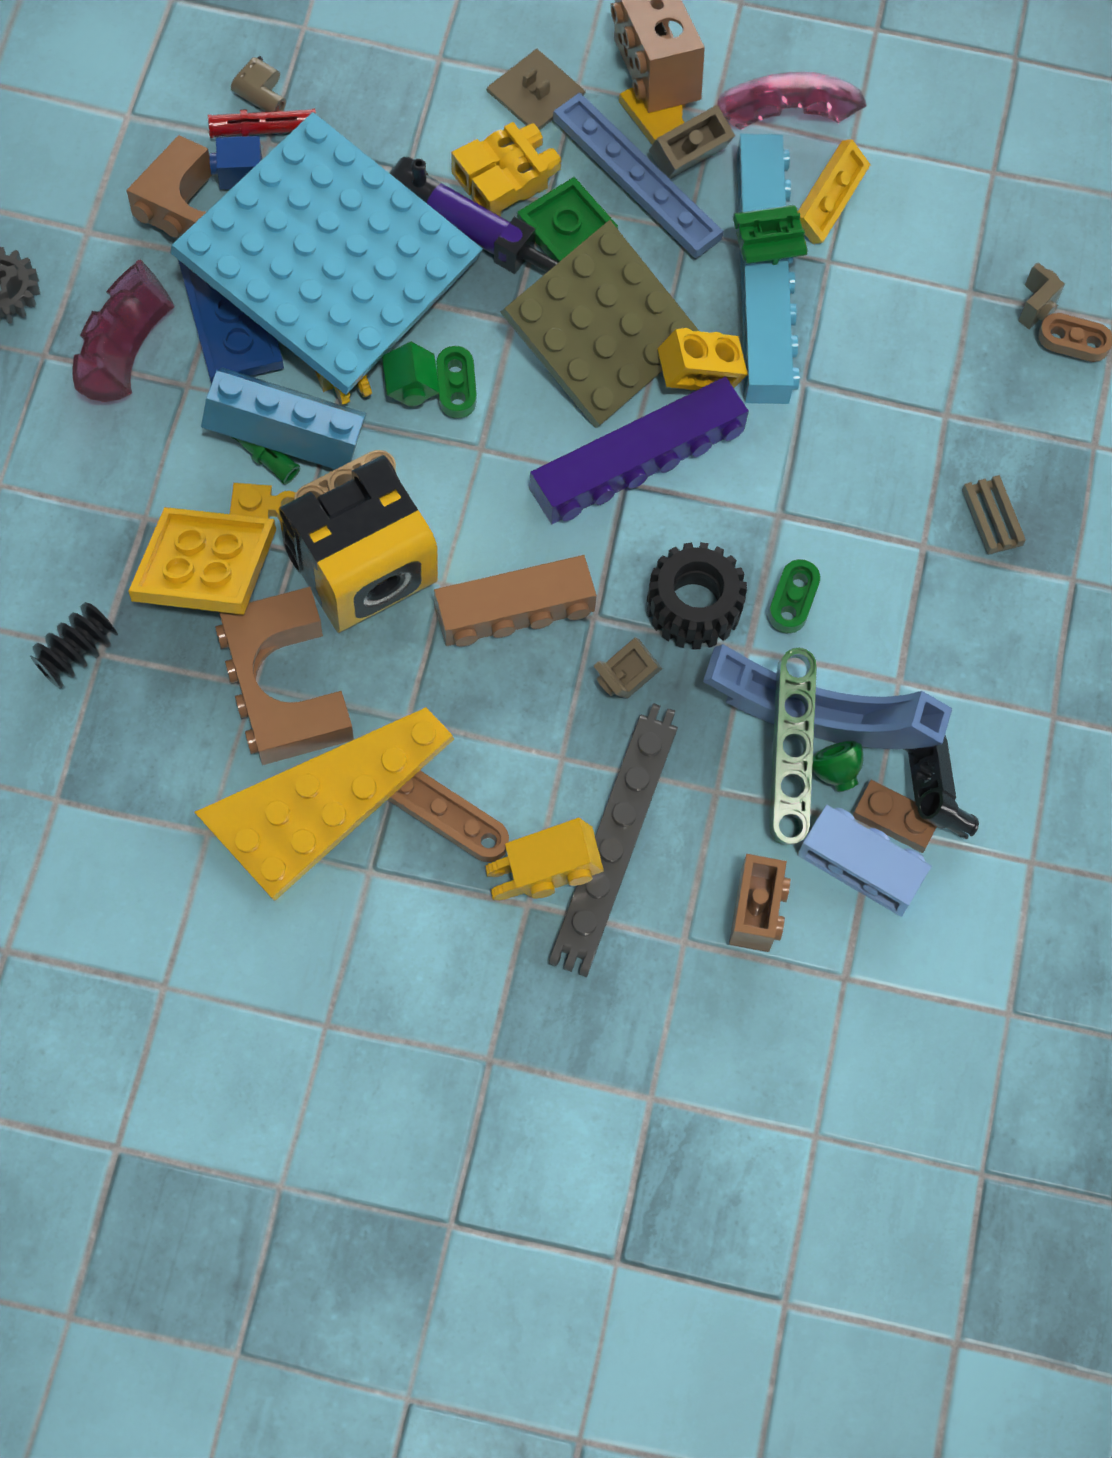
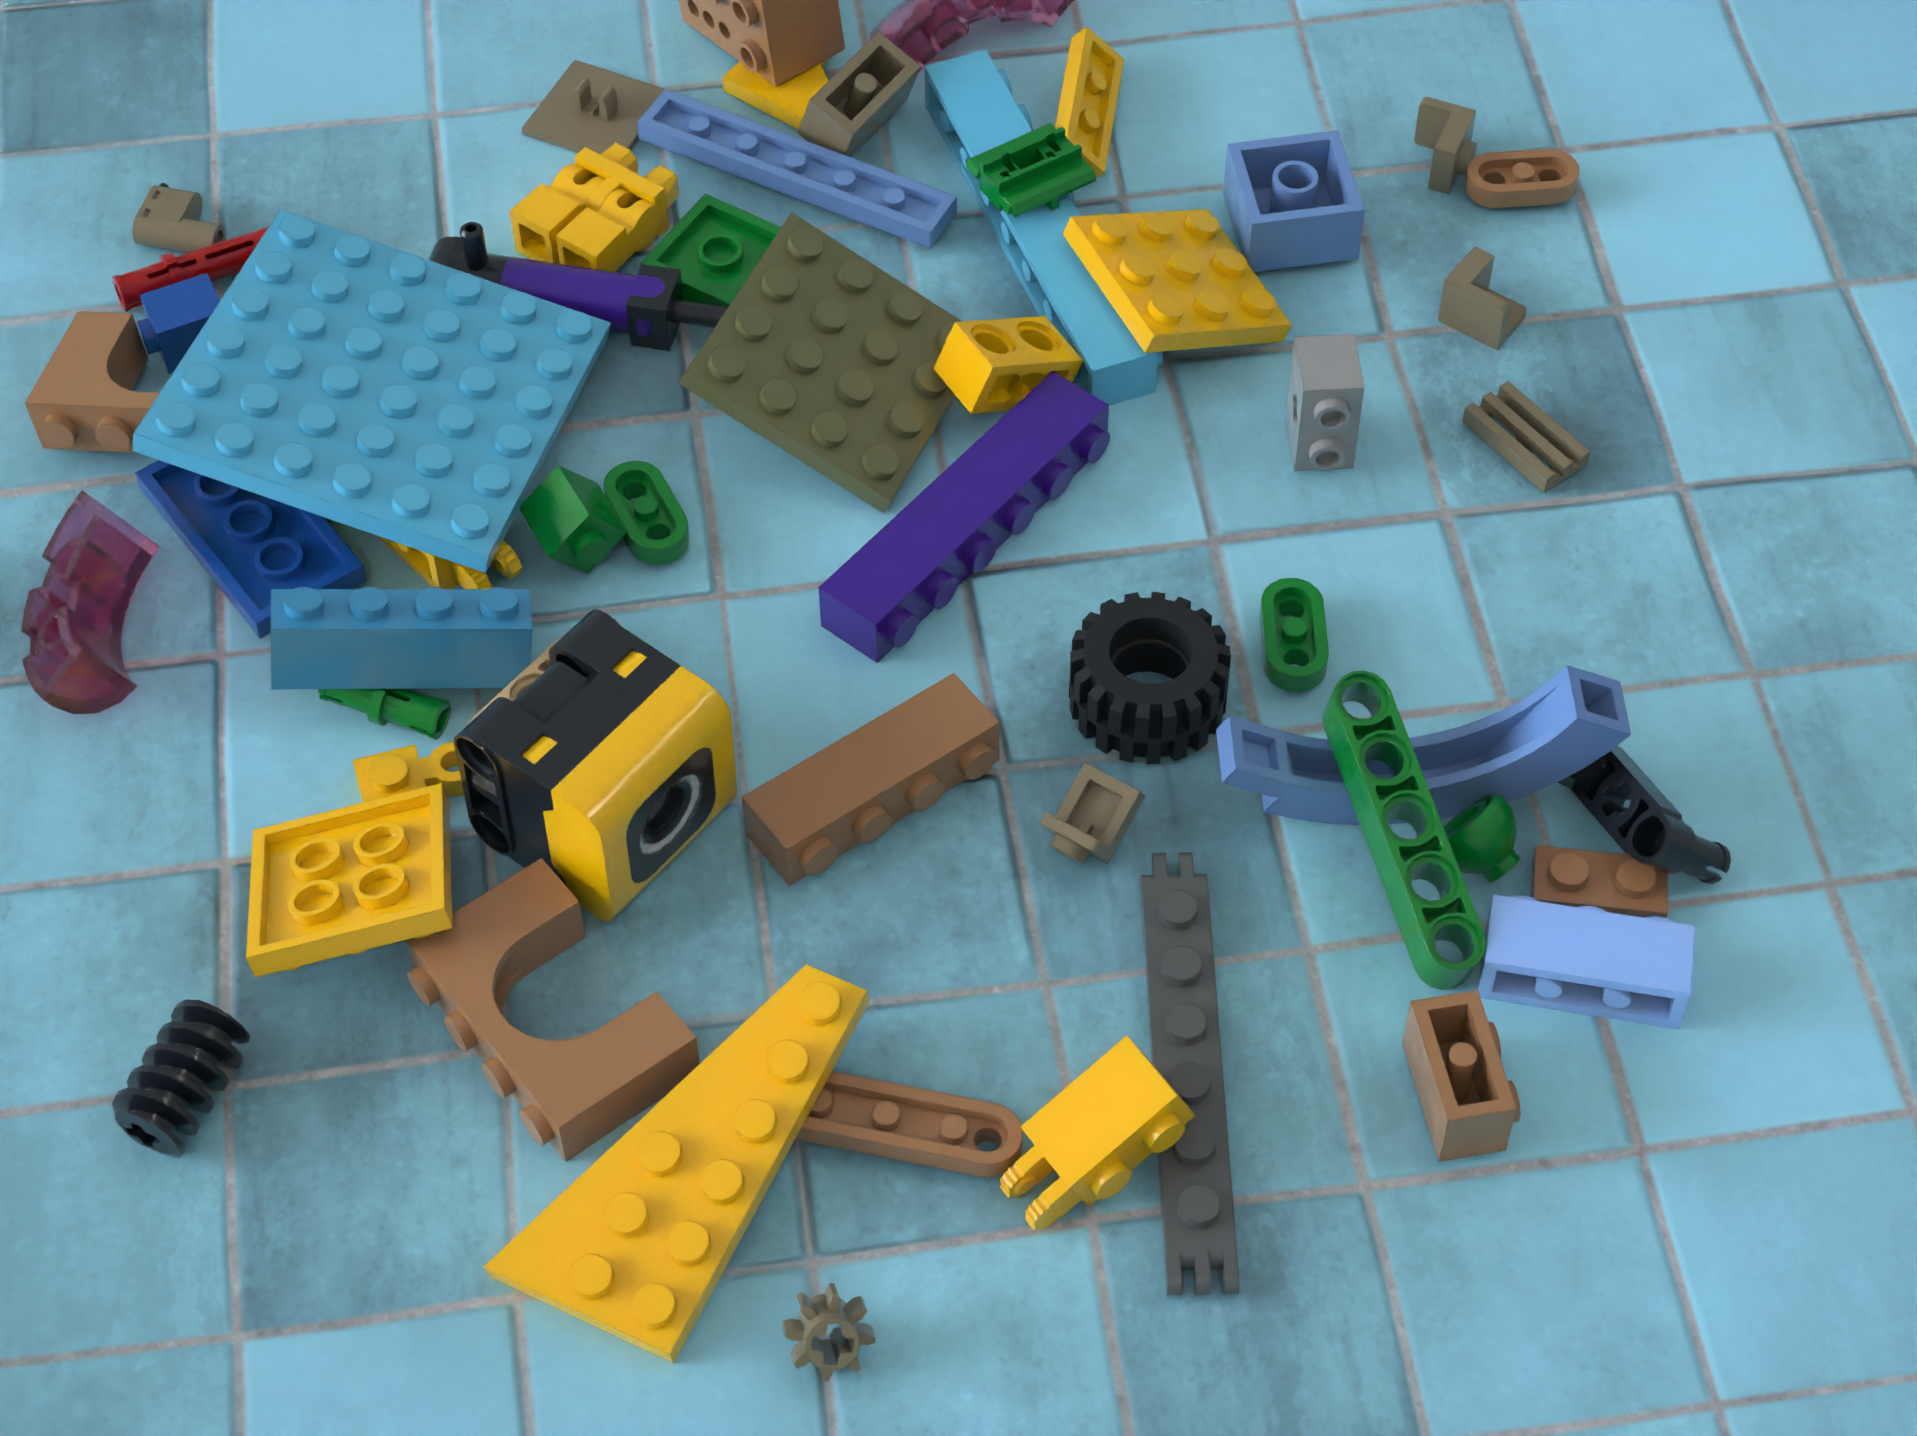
camera: 15 degrees left, 15 degrees down
(357, 918) = (844, 1341): none -> dark tan gear
(828, 337) = (1176, 280): none -> yellow plate
(876, 455) = (1324, 402): none -> light grey brick
(924, 307) = (1293, 201): none -> medium blue brick
(1006, 415) = (1473, 307): none -> dark tan panel

